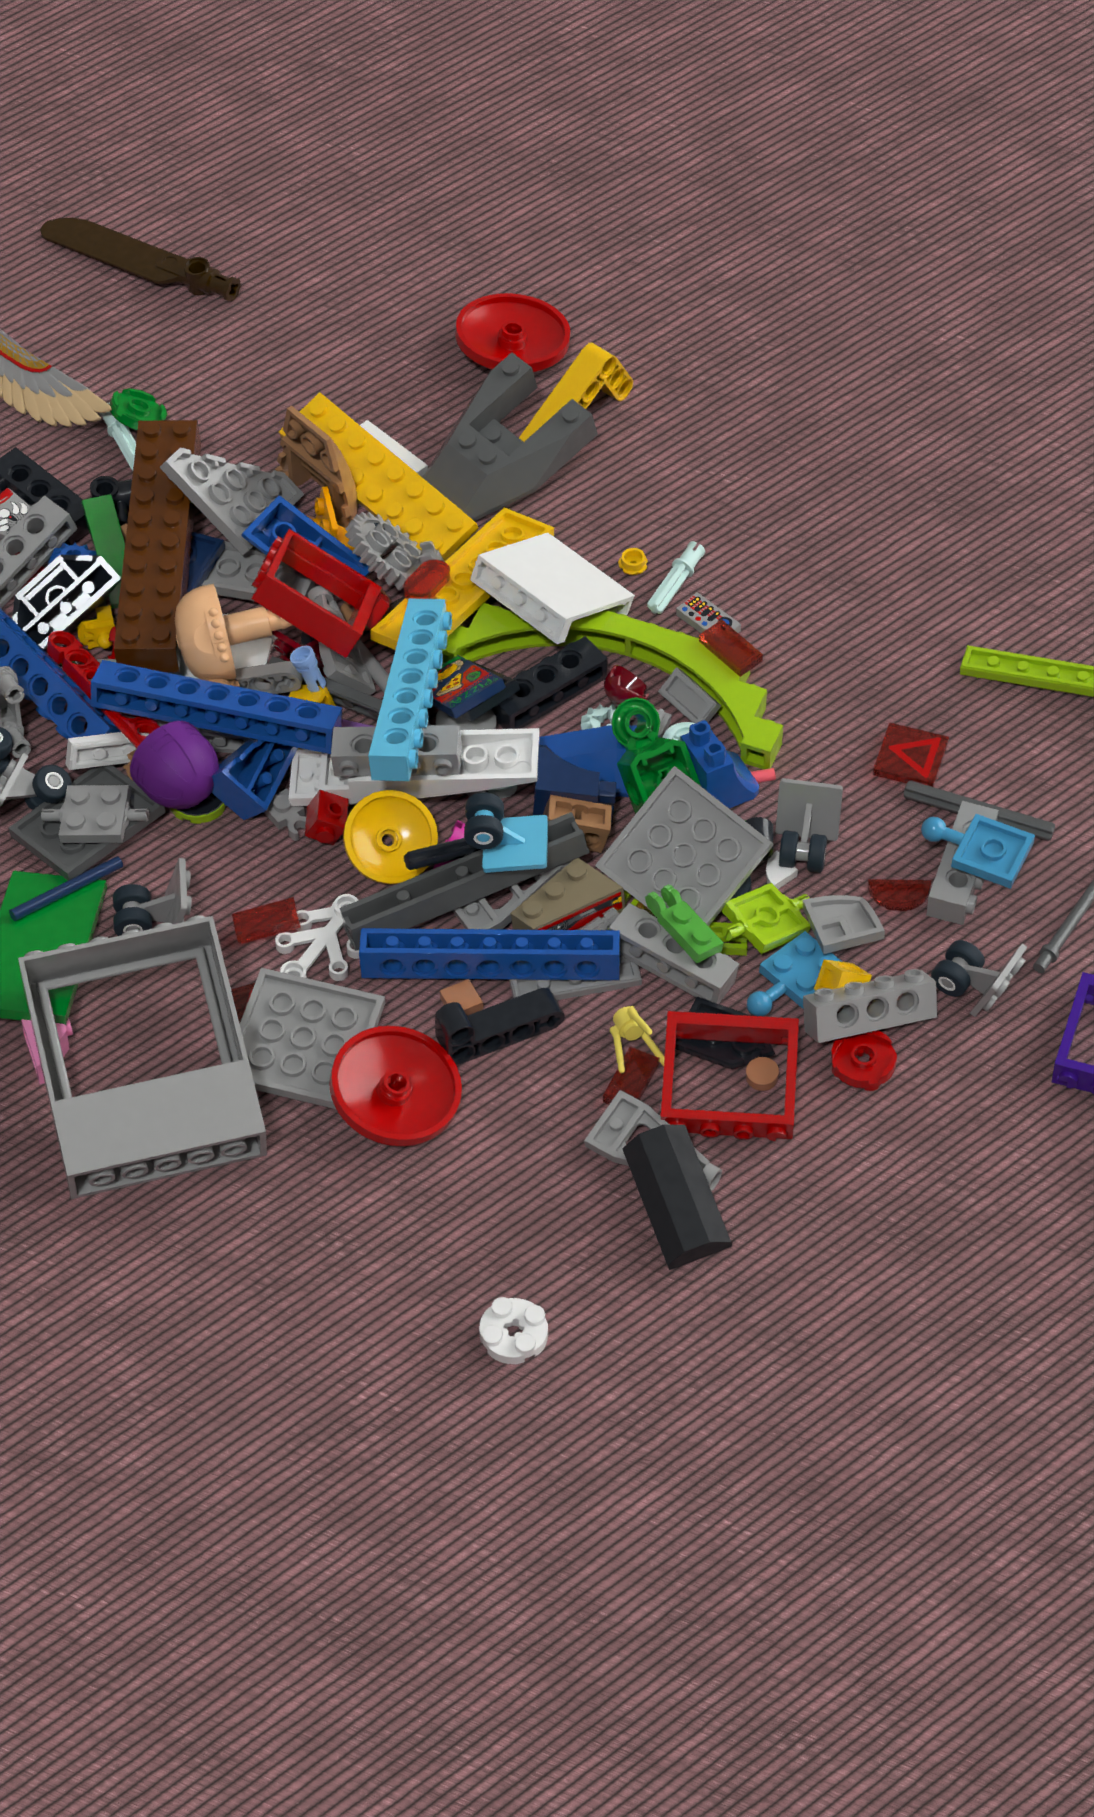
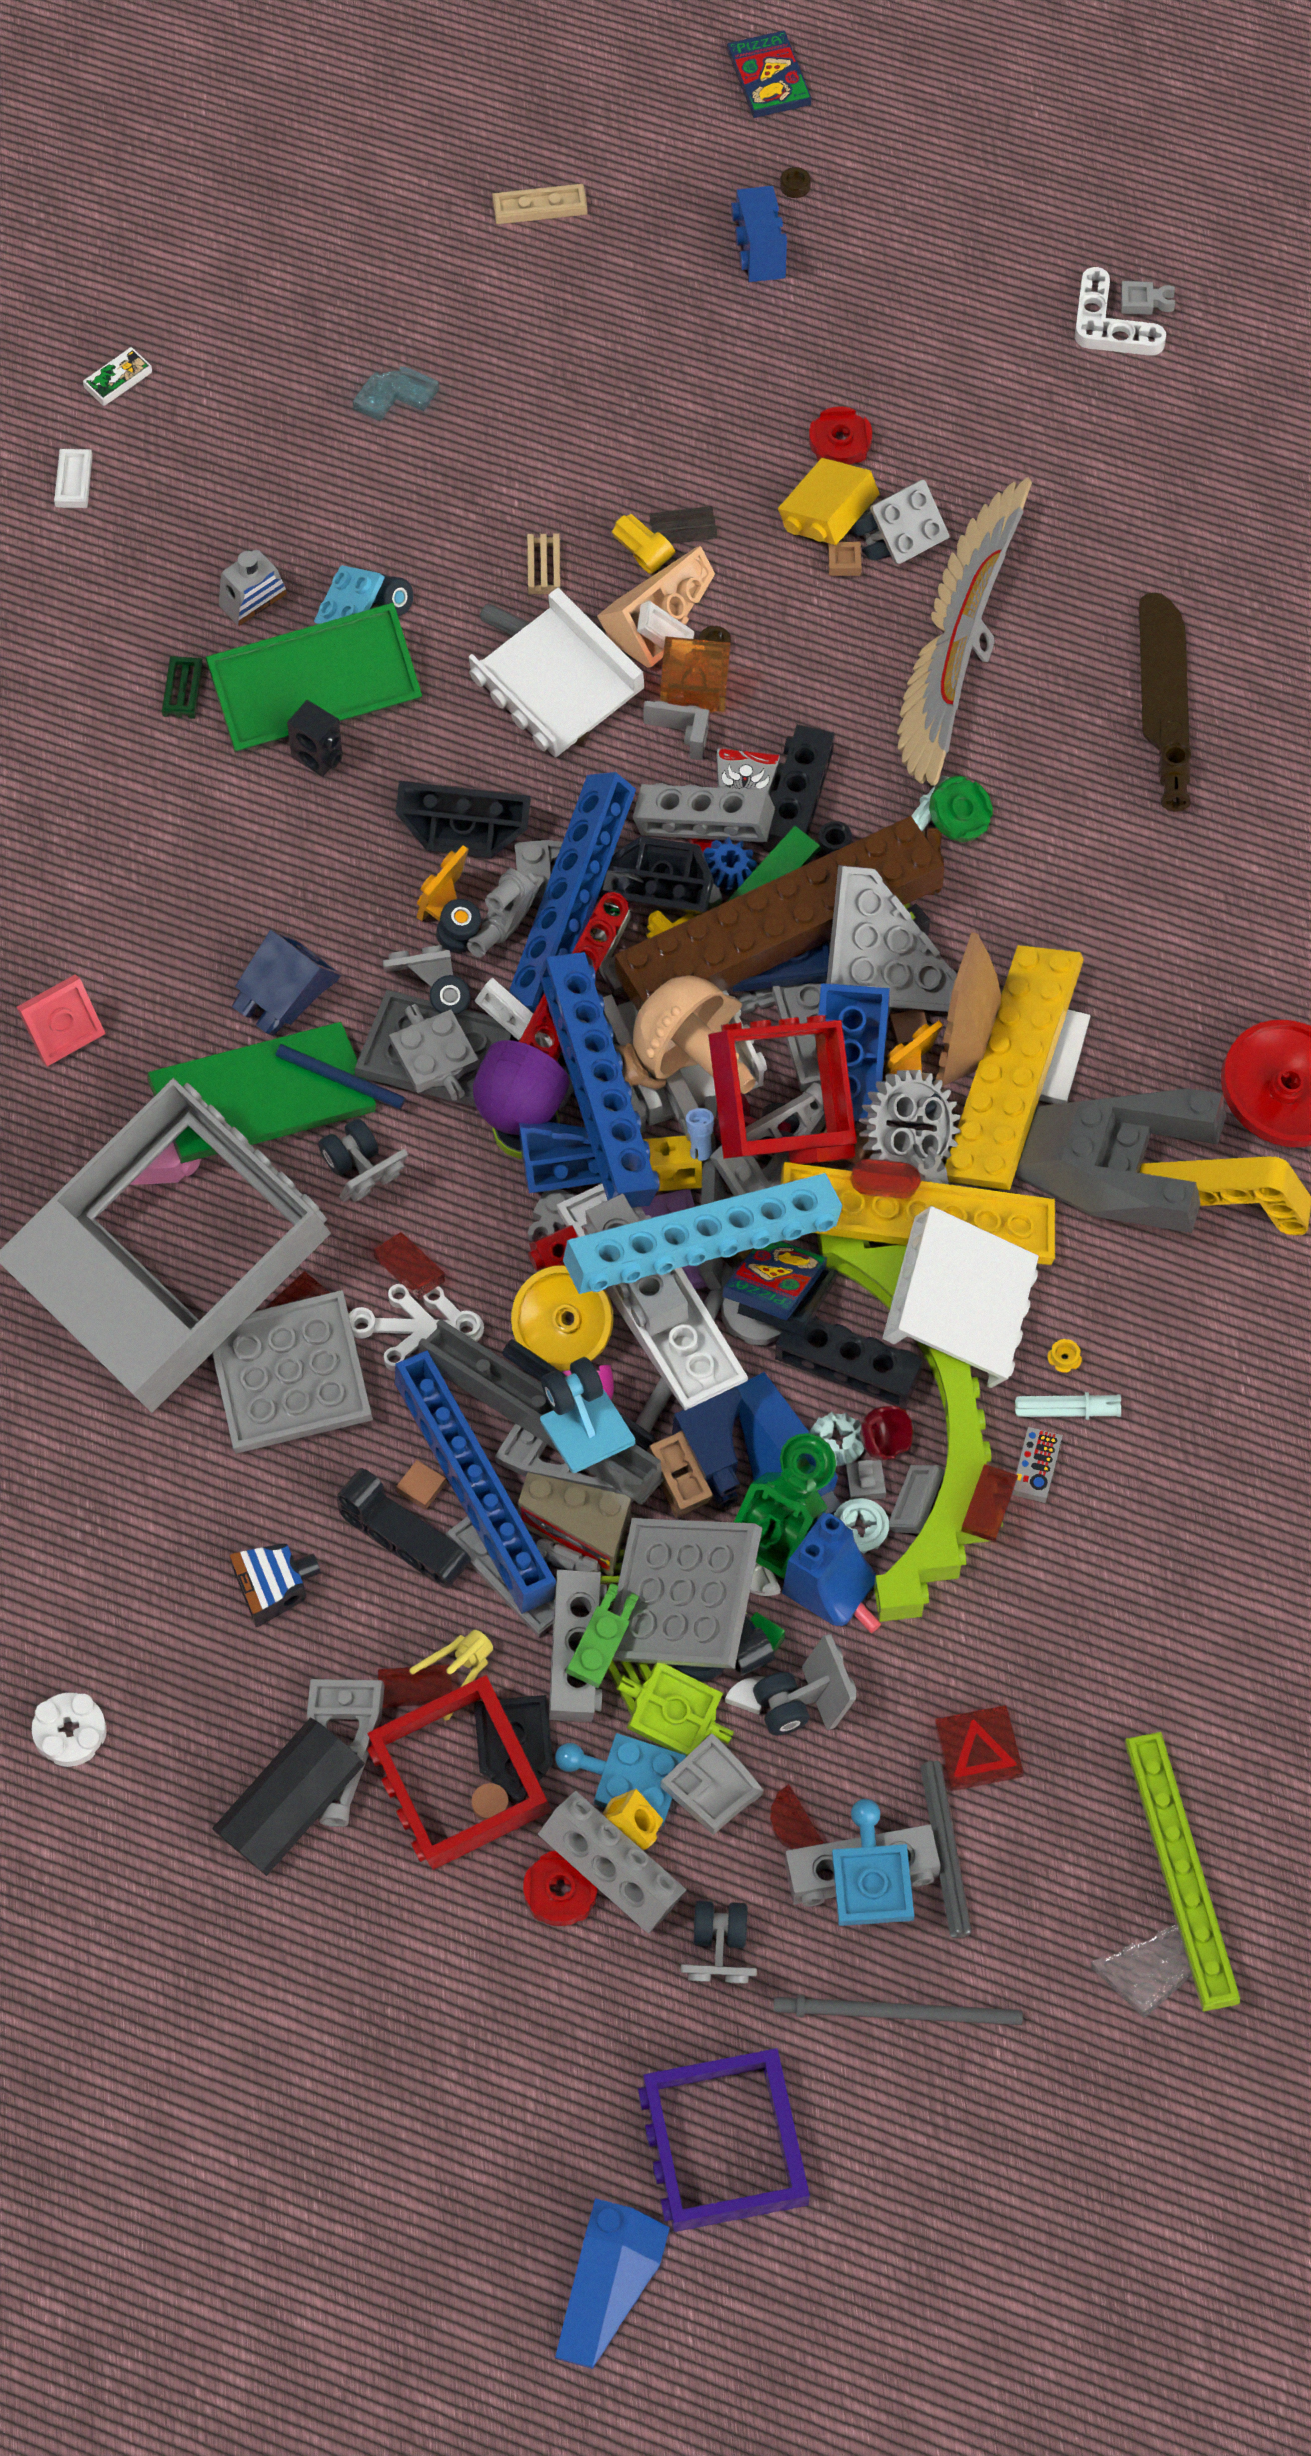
camera: 60 degrees right, 10 degrees up
(395, 1085) = (265, 1447): red dish -> none
(478, 1131) = (272, 1579): none -> torso

